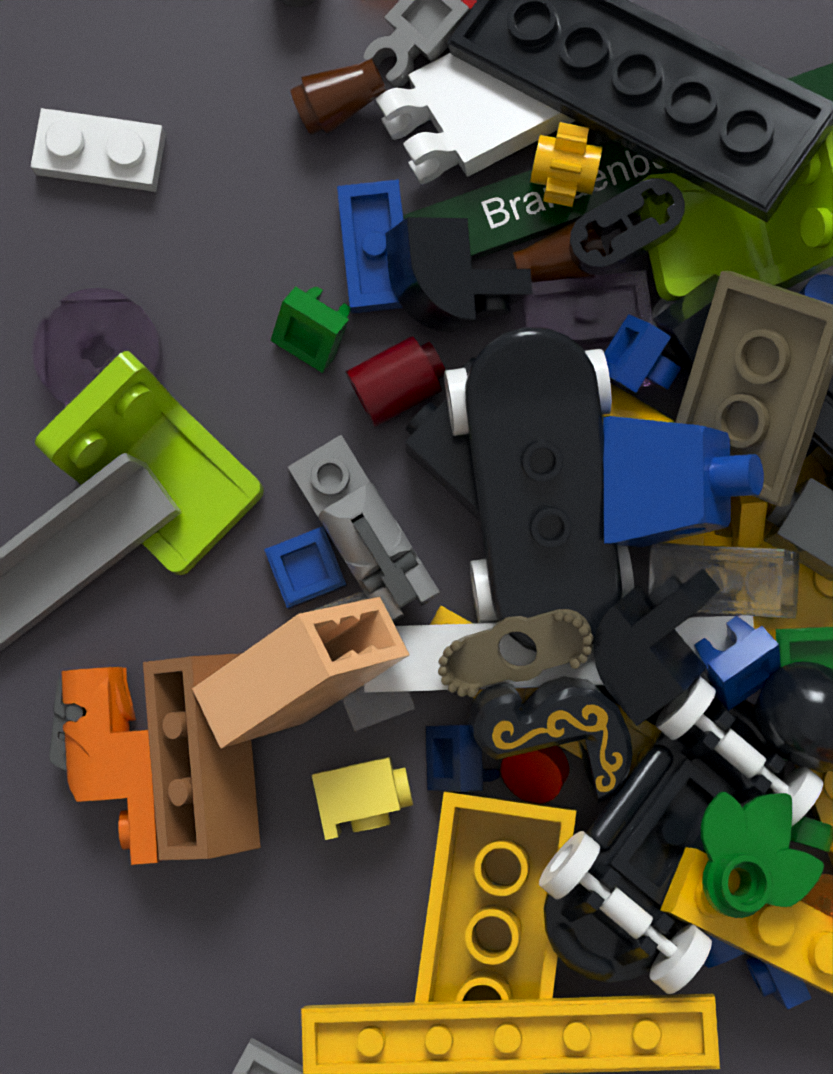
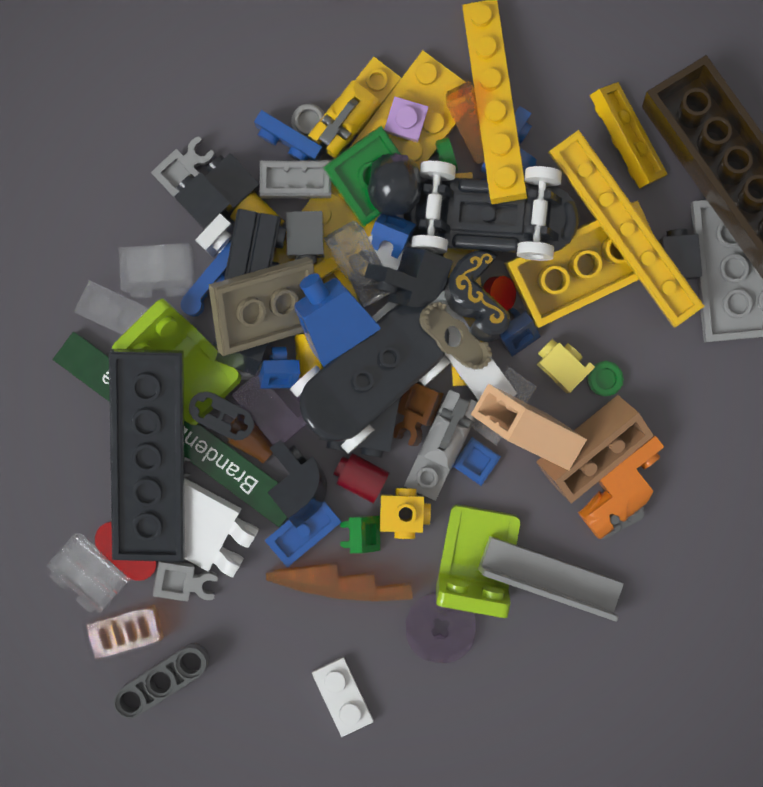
camera: 130 degrees left, 5 degrees up
(274, 231) = (325, 581): none -> clear orange slope
(297, 382) = (393, 504): none -> yellow brick
(297, 846) = (605, 379): none -> green tile
(336, 95) = (242, 598): reddish brown cone -> none
(441, 532) = (418, 407): none -> reddish brown plate
(566, 164) = (208, 464): yellow gear -> none
(757, 846) = (472, 173): green plate -> none

